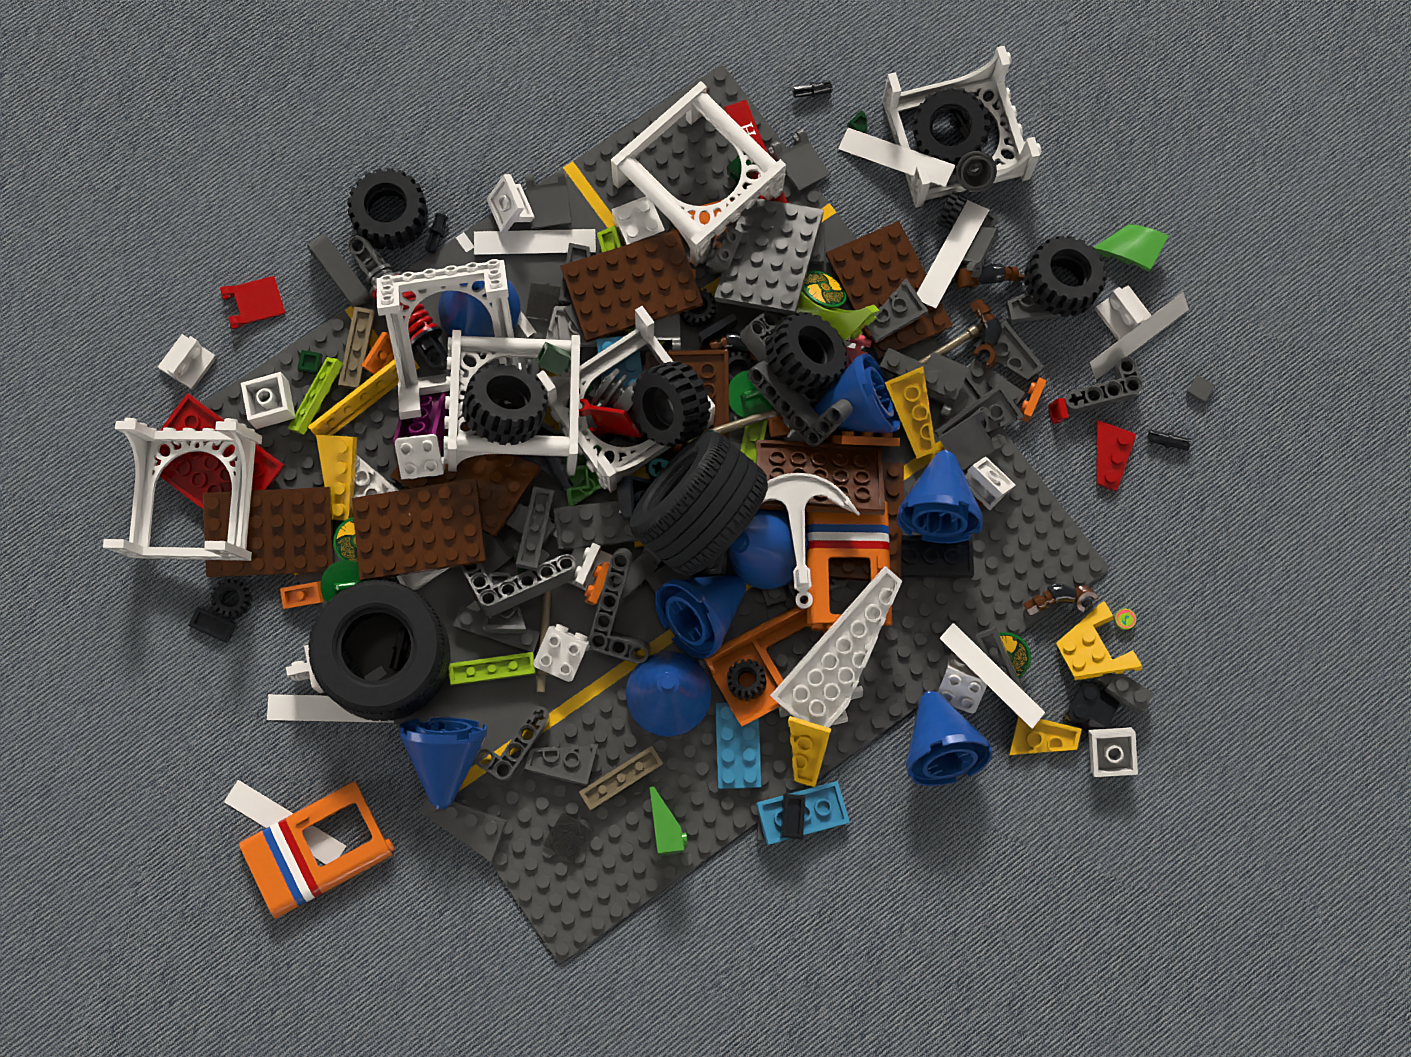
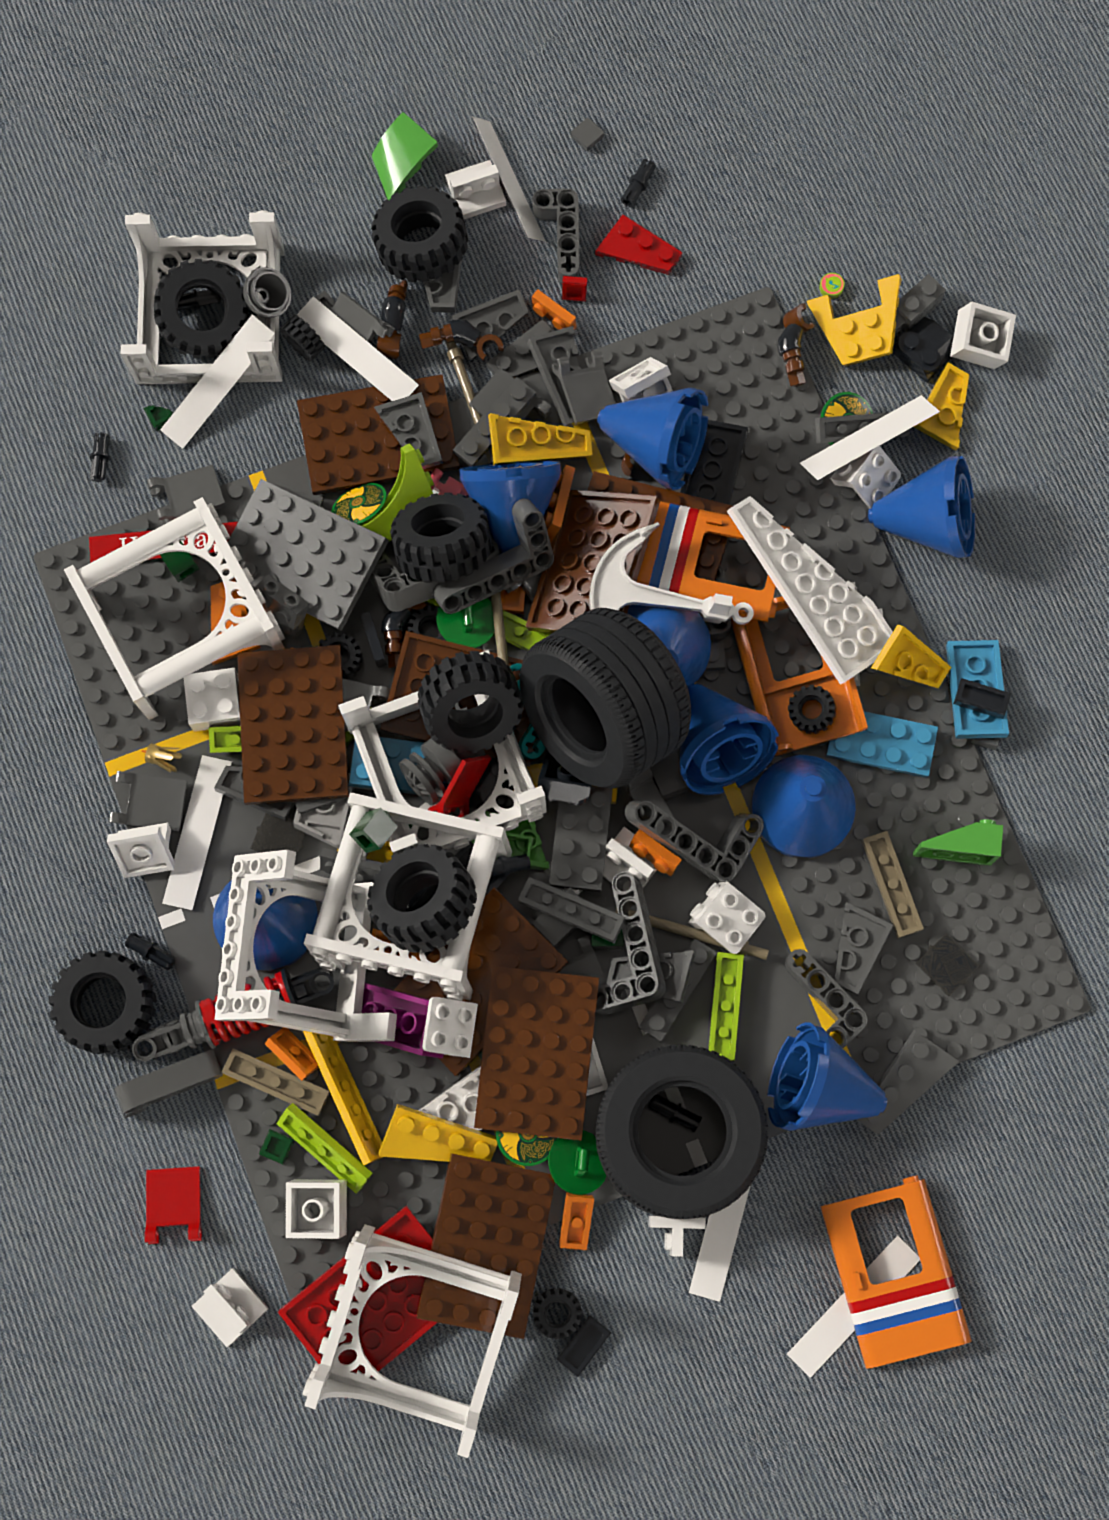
camera: 70 degrees left, 0 degrees up
(585, 197) = (155, 754): none -> pearl gold piece

